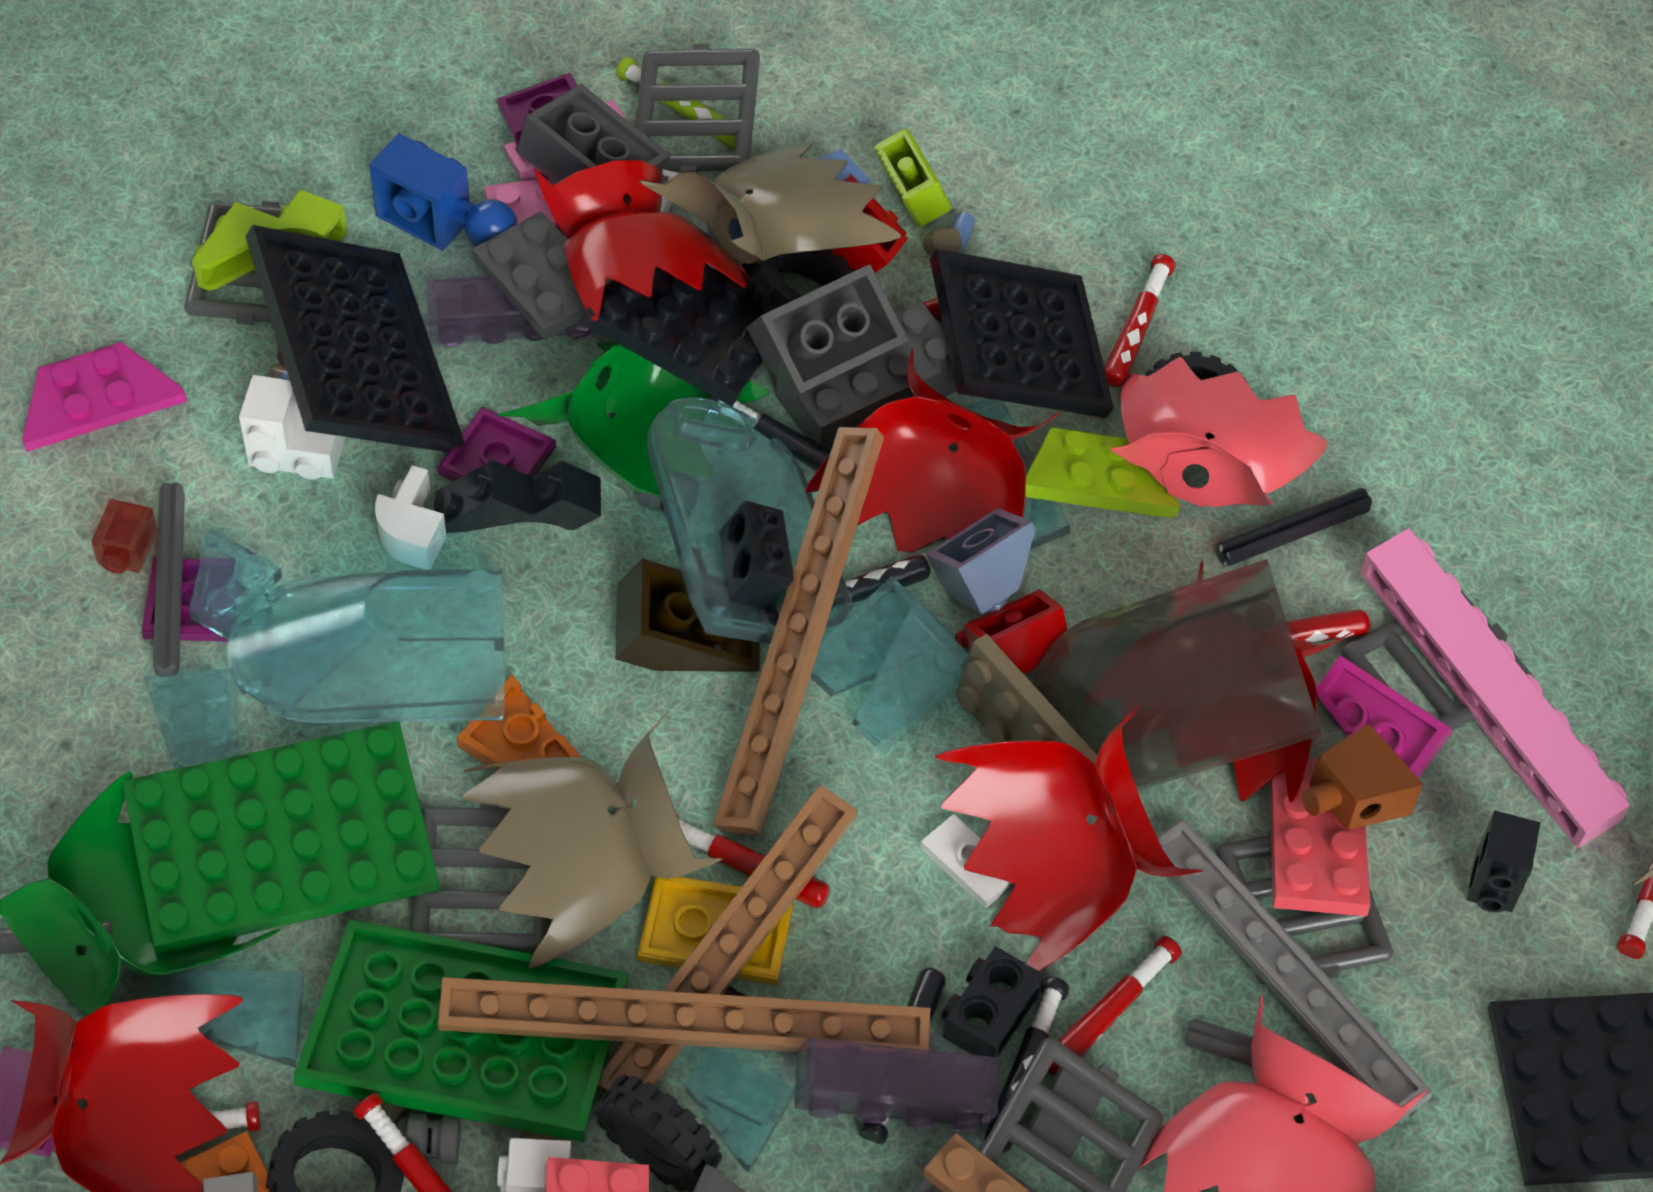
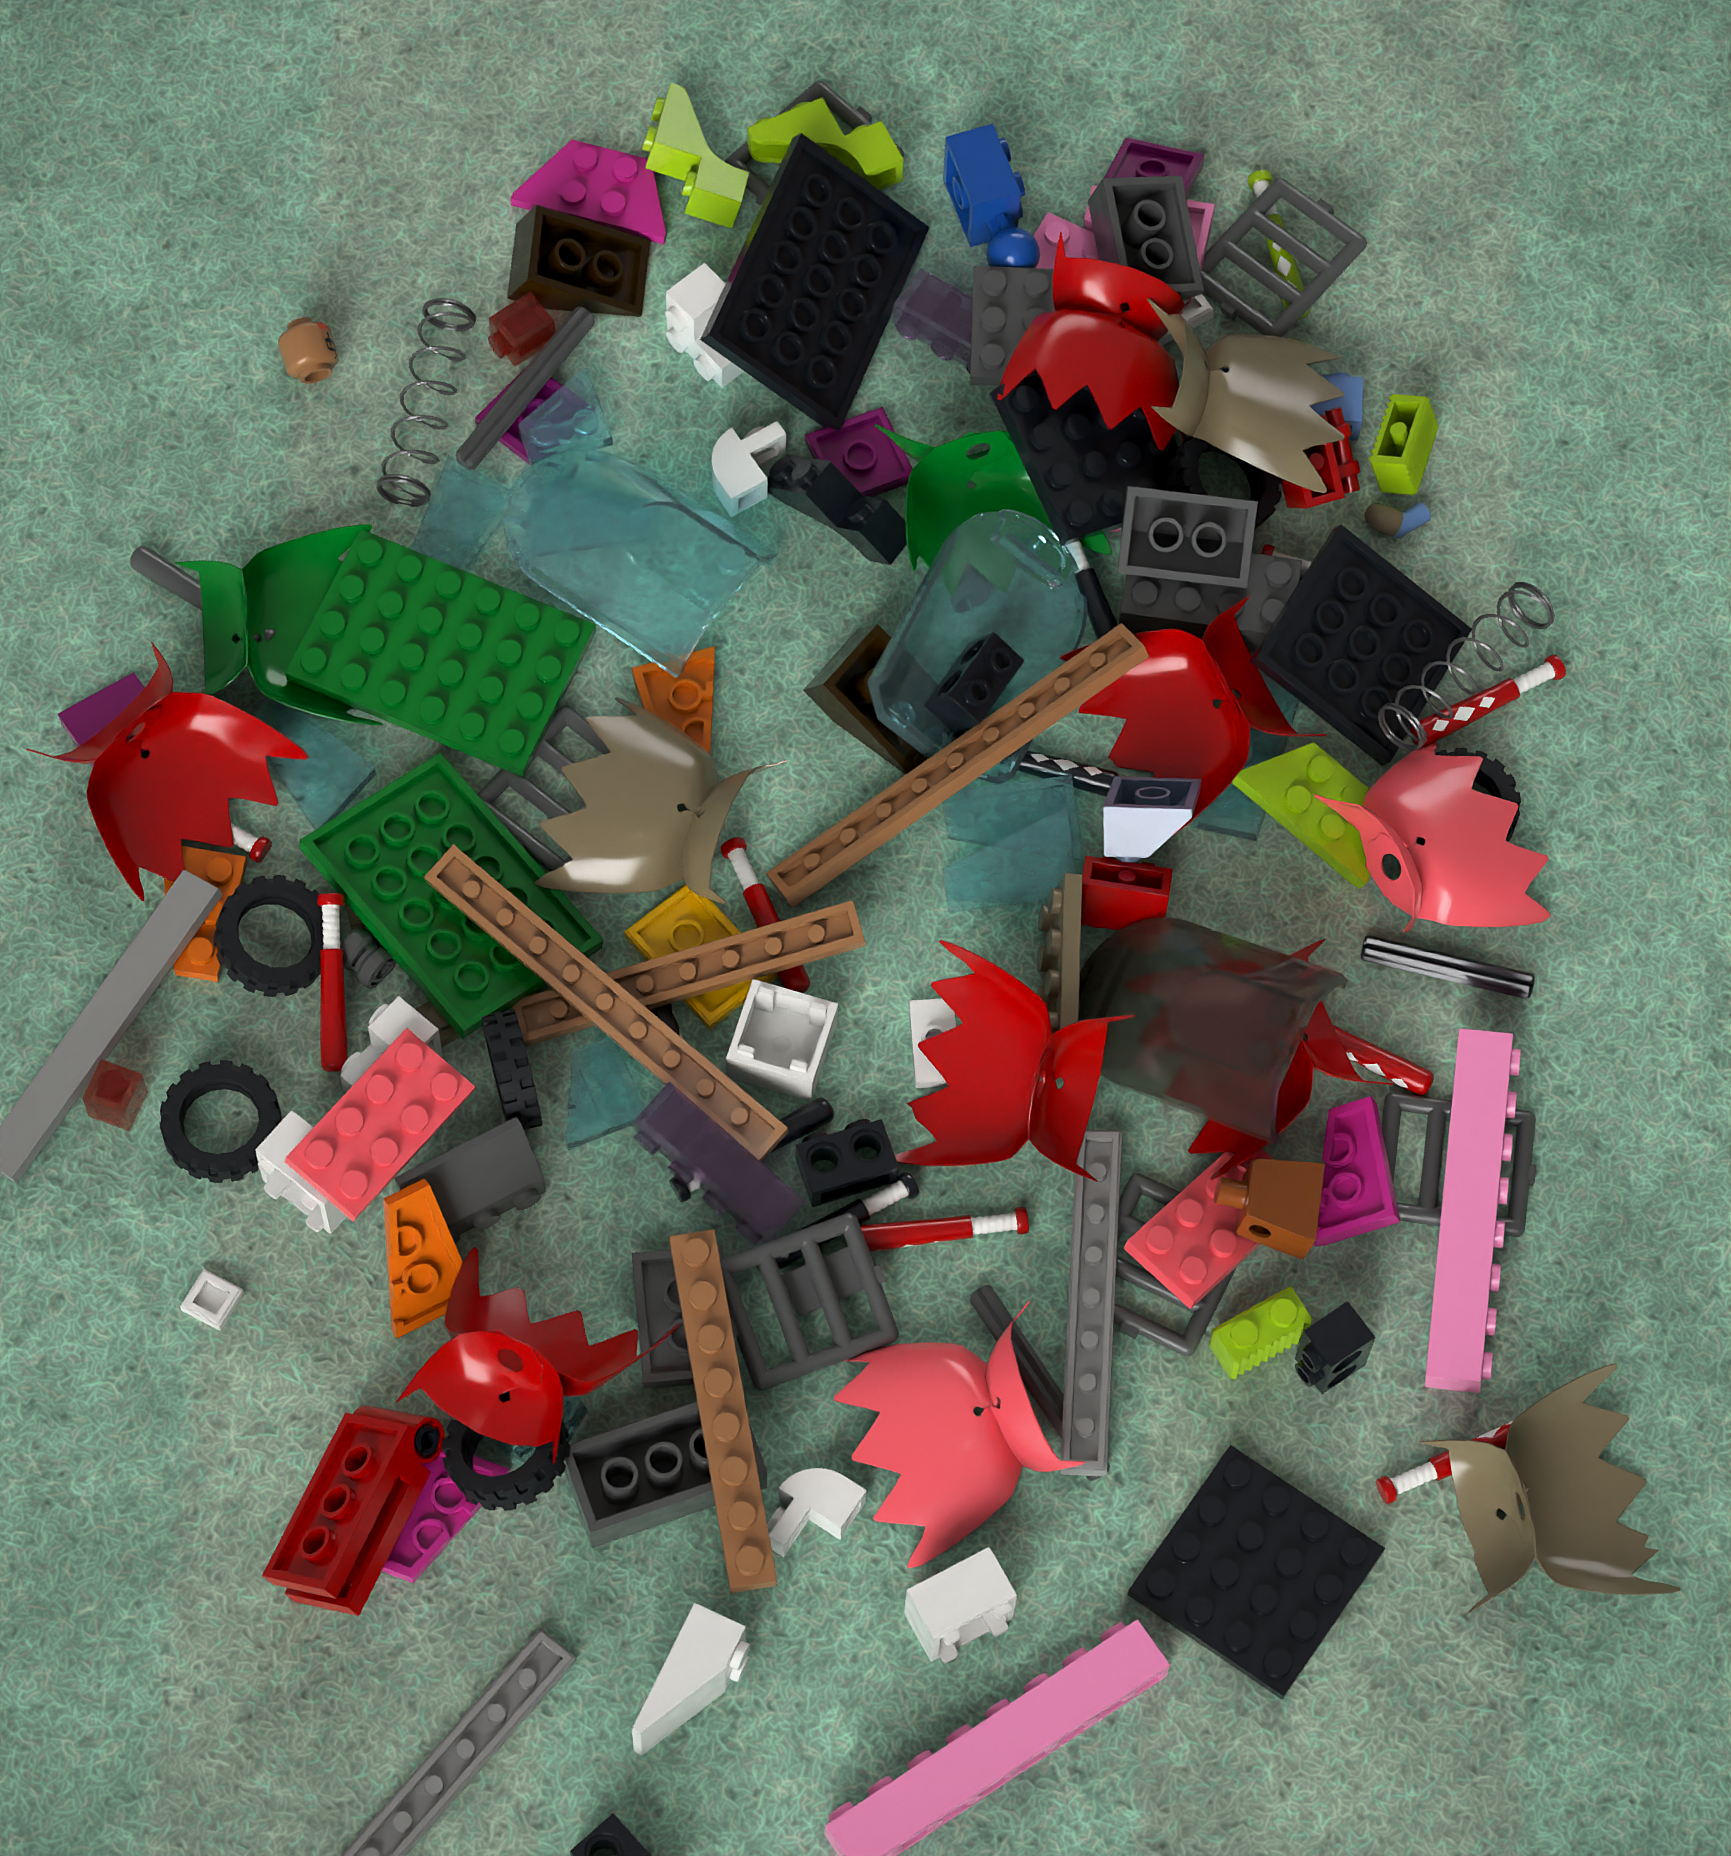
camera: 40 degrees right, 10 degrees up
(126, 456) = (577, 264): none -> dark brown slope
(146, 317) = (681, 152): none -> lime arch
(152, 726) = (391, 478): none -> dark grey piece
(852, 944) = (782, 1040): none -> white container
(1107, 349) = (1541, 598): none -> dark grey piece
(1433, 895) = (1260, 1332): none -> lime brick

